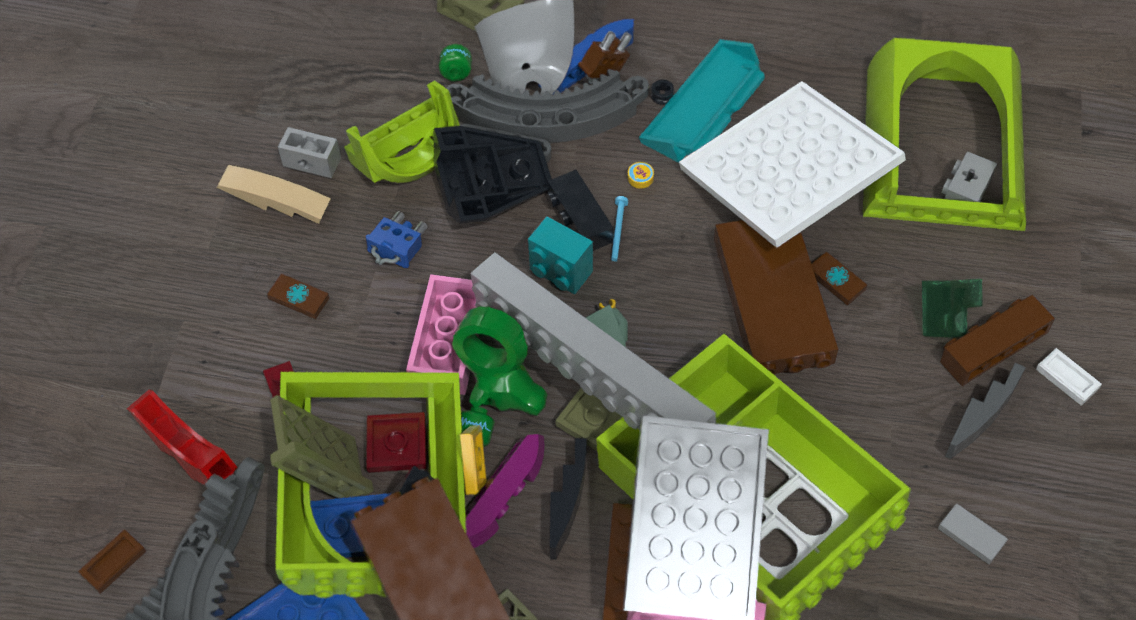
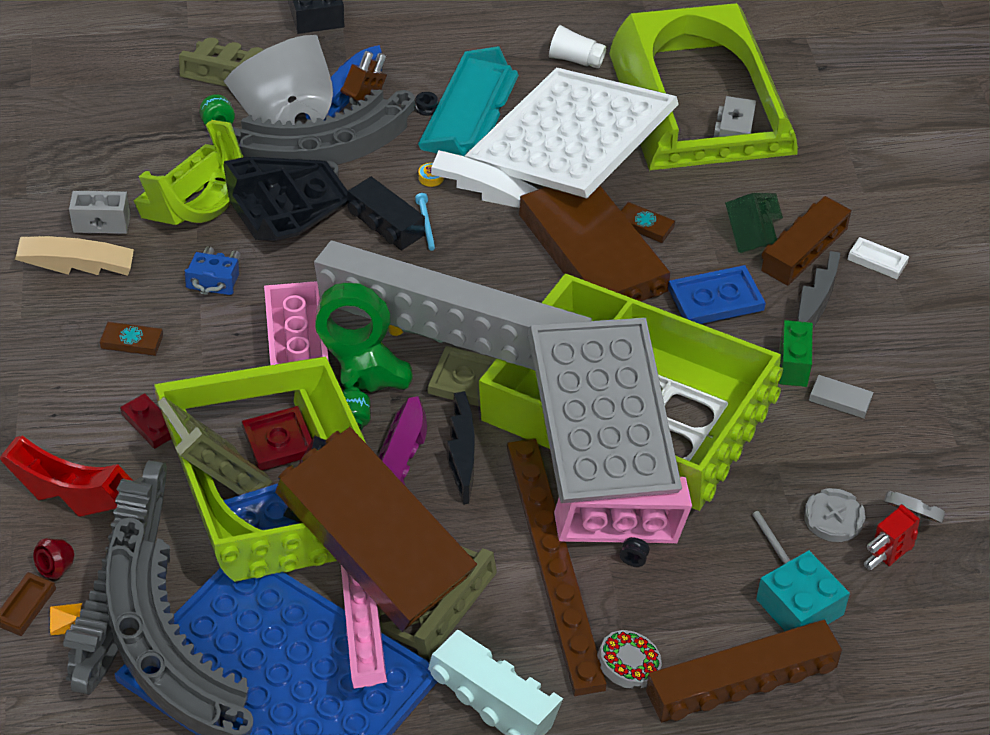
camera: 20 degrees left, 10 degrees down
(140, 585) = (62, 617): none -> light orange slope
(150, 521) = (53, 557): none -> dark red cone
(473, 459) = (365, 423): yellow plate -> none
(560, 255) = (385, 237): teal brick -> none
(686, 193) = (482, 178): none -> white slope
(832, 59) = (576, 48): none -> white plant
(880, 383) = (716, 295): none -> blue plate
(939, 473) = (796, 353): none -> green brick

